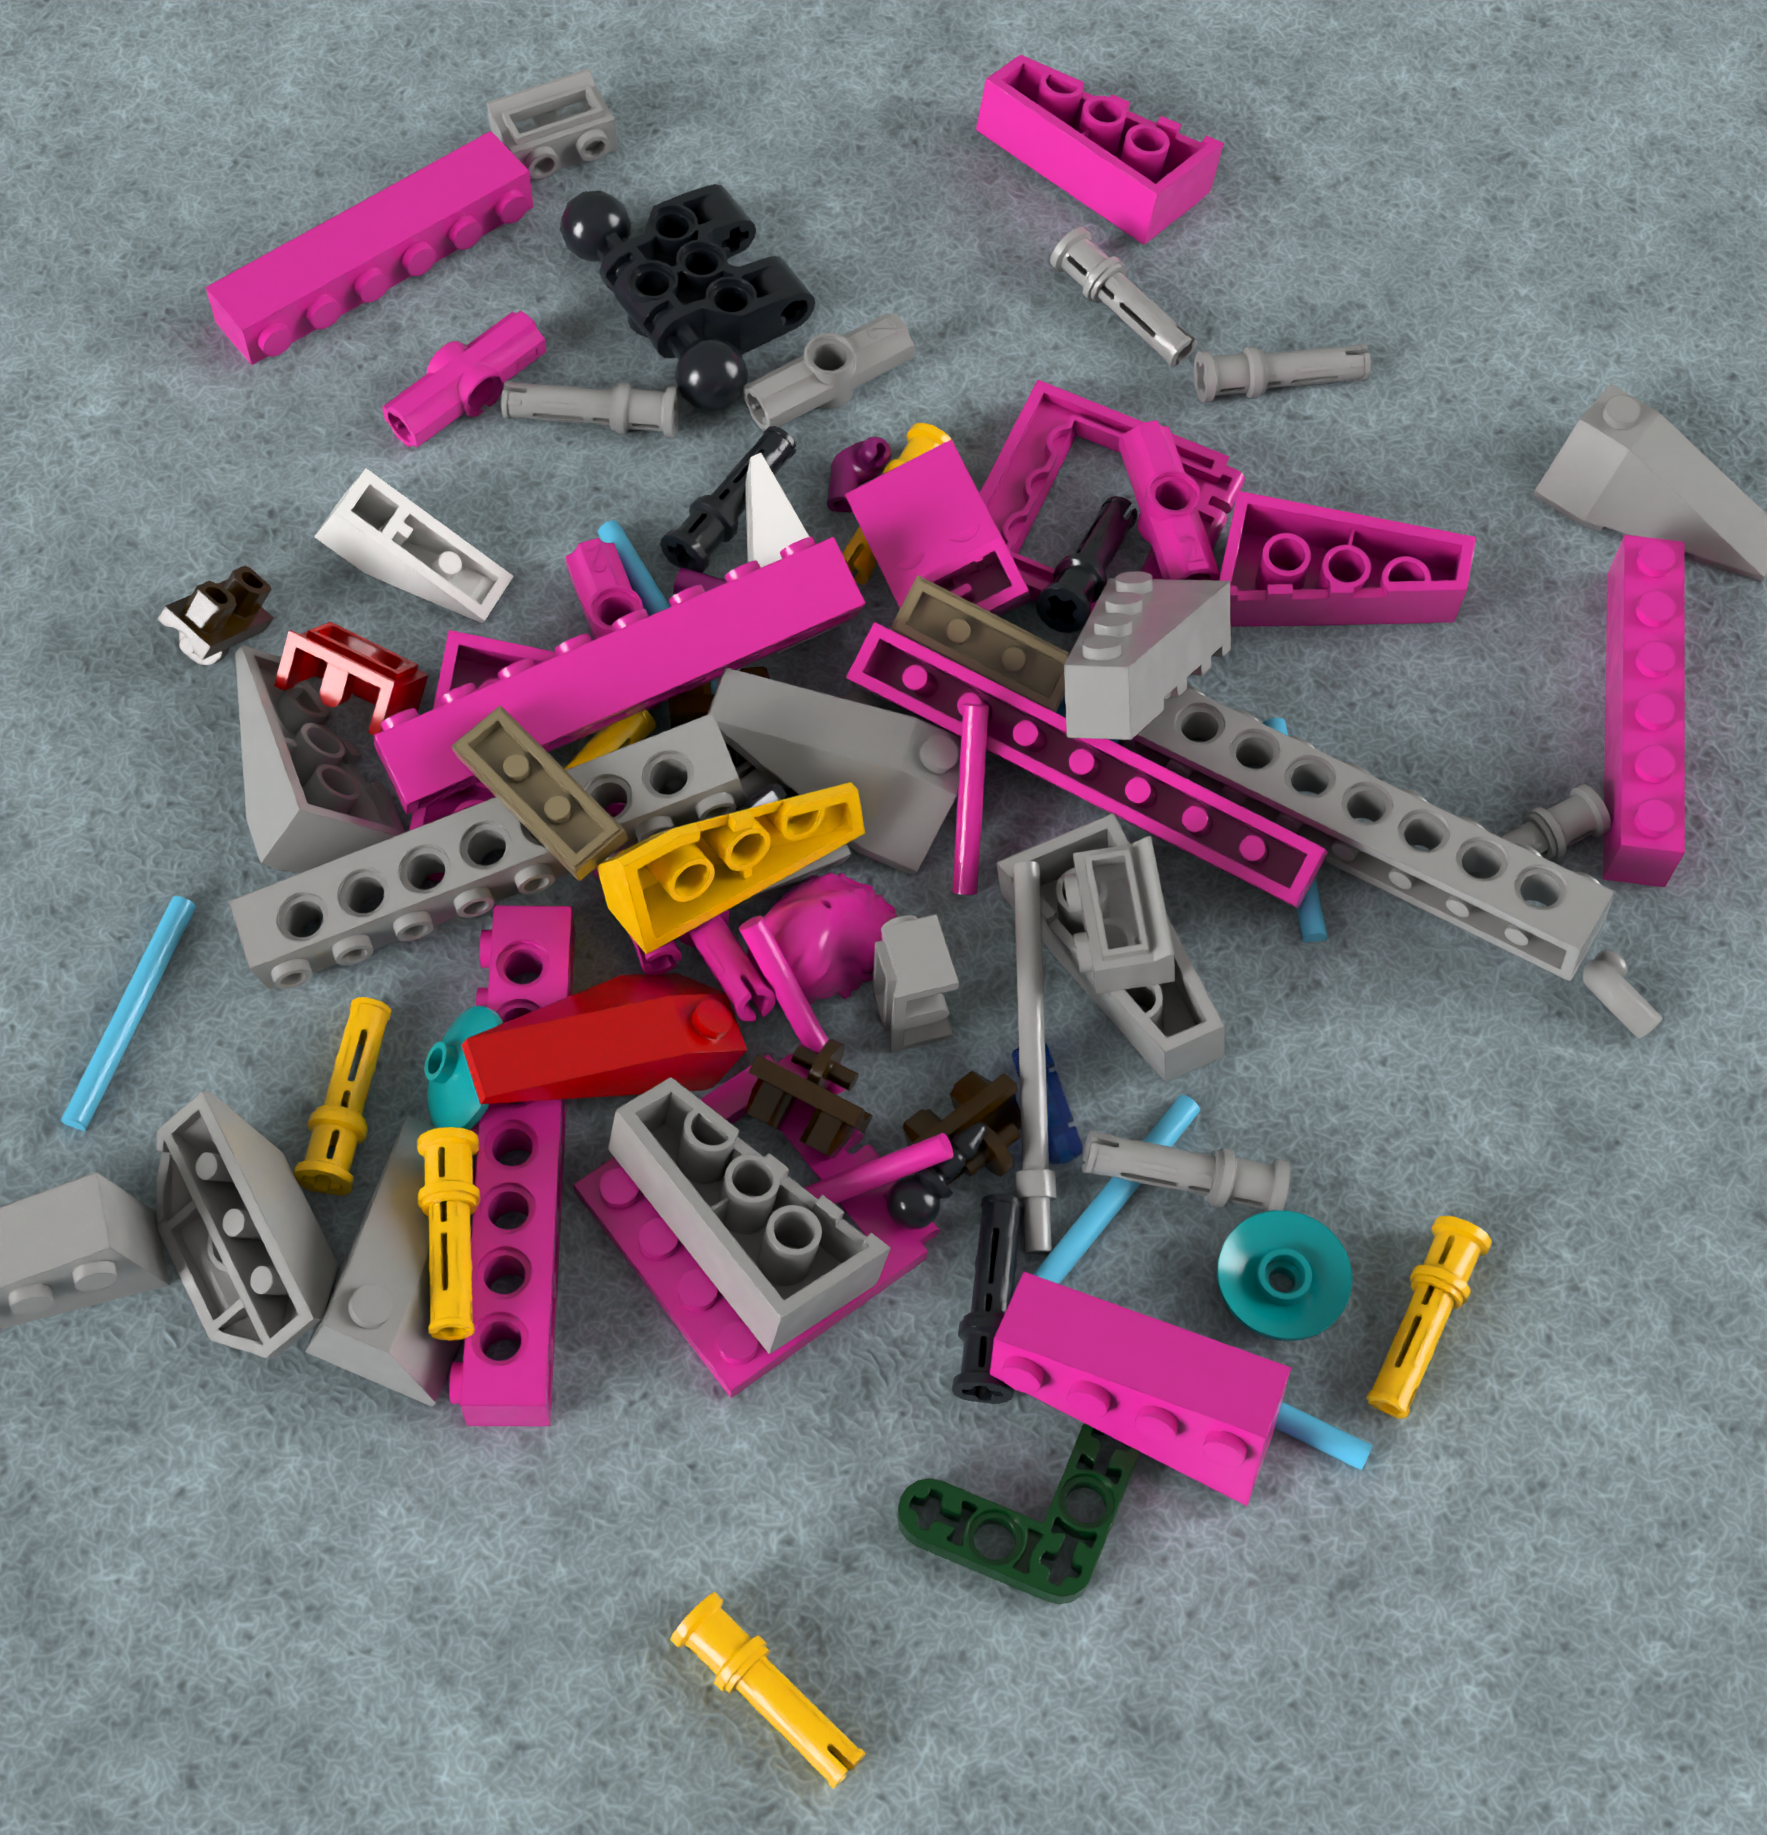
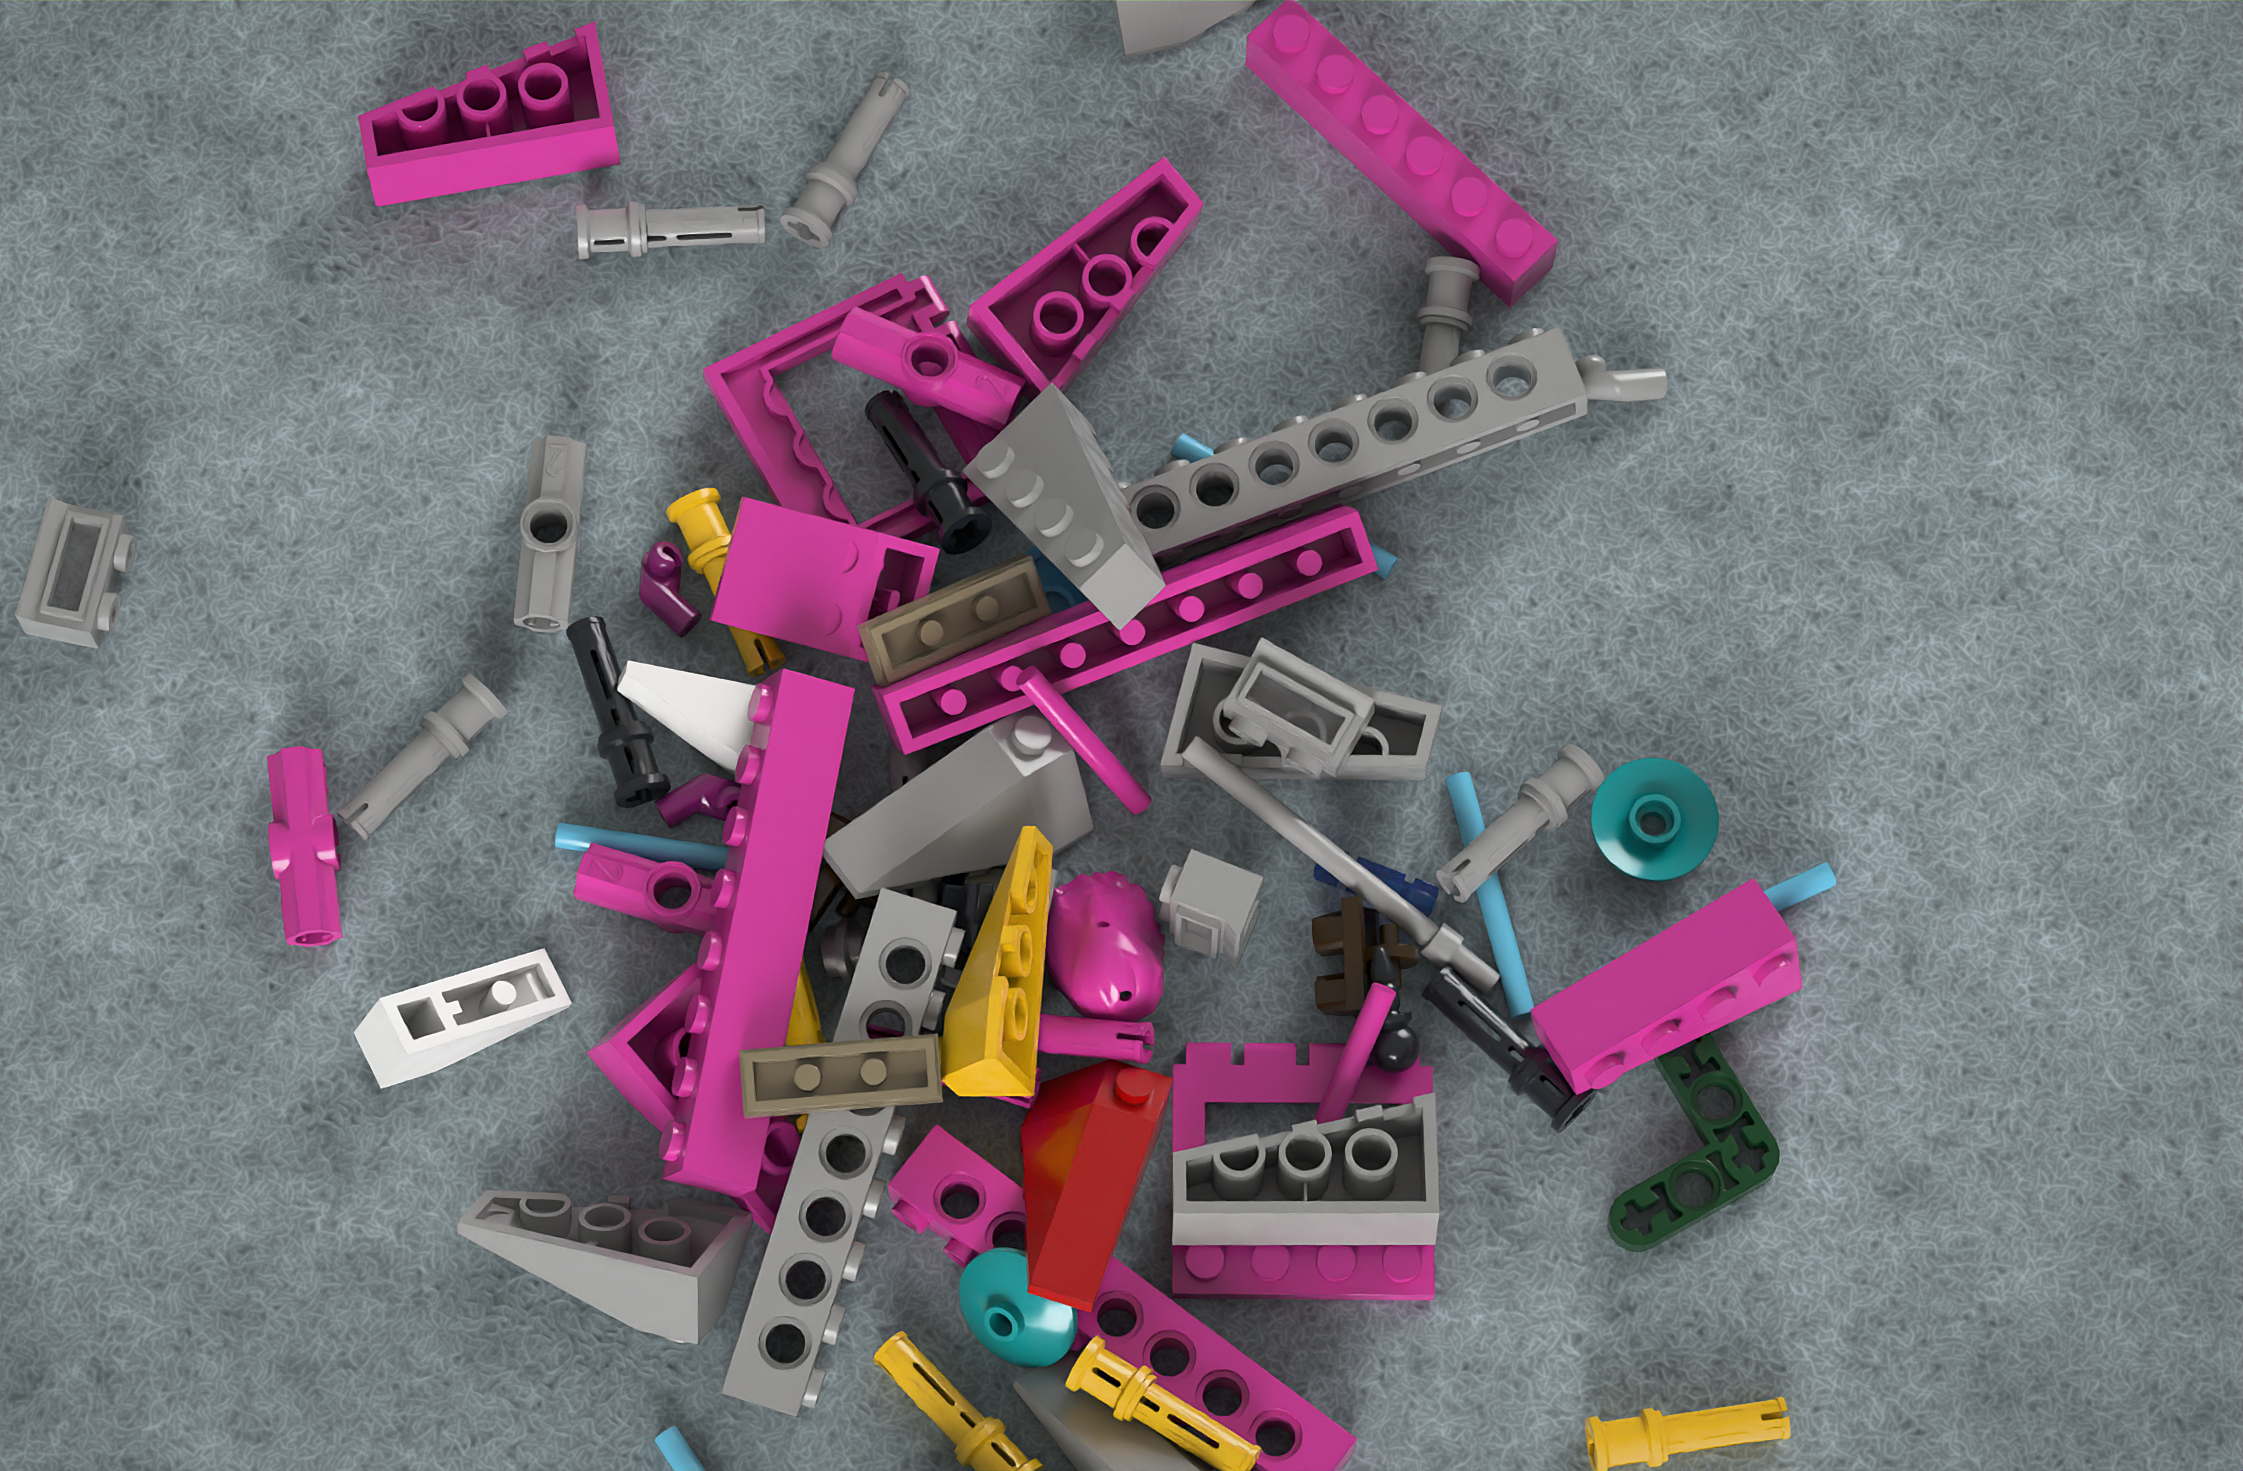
camera: 50 degrees left, 10 degrees up
(219, 615) = (409, 1220): dark brown hips -> none
(351, 667) = (558, 1140): red window -> none
(370, 248) = (90, 827): dark pink brick -> none
(685, 290) = (303, 520): black connector -> none
(779, 1088) = (1275, 1051): dark brown hips -> none
(785, 987) = (1165, 1013): dark pink bar -> none
(1437, 1289) = (1740, 710): yellow pin -> none

